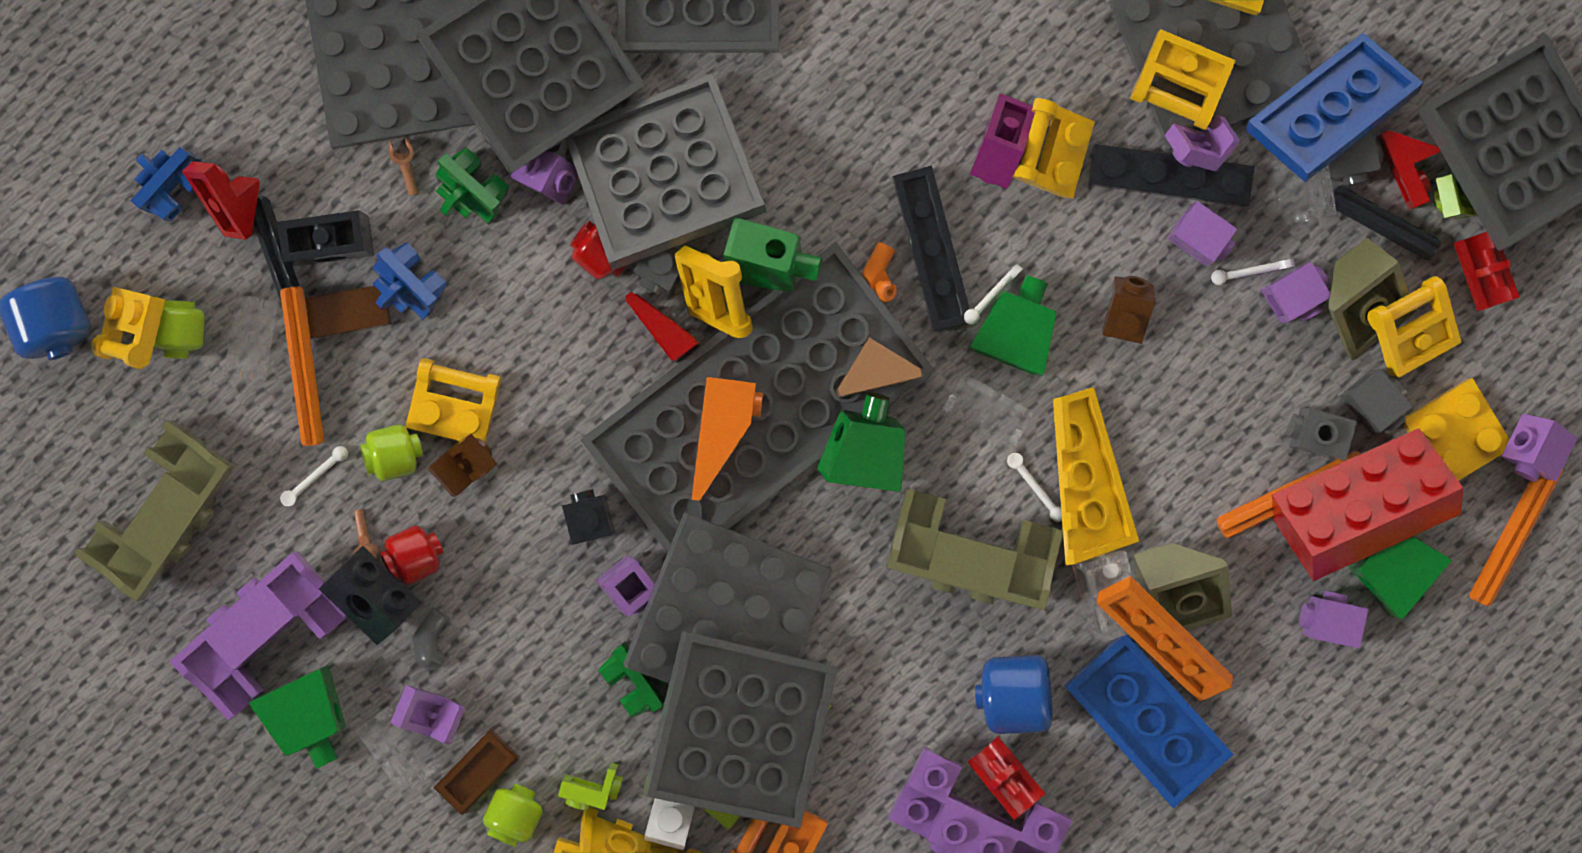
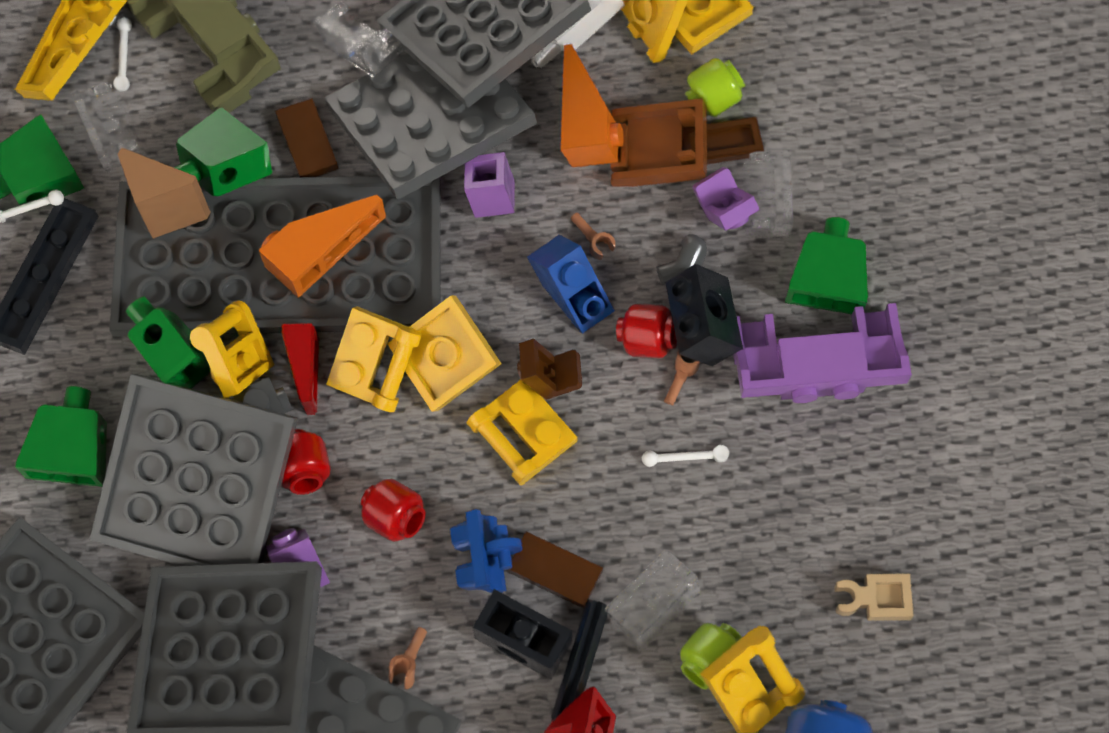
camera: 140 degrees left, 20 degrees down
(84, 469) = (884, 597): none -> tan plate
(166, 519) = (835, 498): olive bracket -> none
(302, 365) = (625, 547): orange axle -> none
(391, 452) = (604, 422): lime head -> none
(463, 192) = (375, 594): green hips -> none
(500, 263) = (392, 510): none -> red head
(504, 552) = (571, 282): none -> blue slope
(516, 607) = (593, 237): none -> nougat hand
(528, 726) = (654, 144): none -> dark orange container
(554, 415) = (449, 354): none -> yellow plate
(584, 793) = (643, 65): lime bracket -> none
(588, 517) = (481, 258): black brick -> none
(593, 706) = (587, 125): none -> orange slope
(620, 371) = (362, 353): none -> yellow plate
(644, 695) = (543, 136): green hips -> none
(793, 132) = (66, 442): none -> green torso
(818, 522) = (306, 139): none -> reddish brown tile
(840, 640) = (357, 41): none -> clear hinge
(876, 274) = (101, 289): orange arm -> none

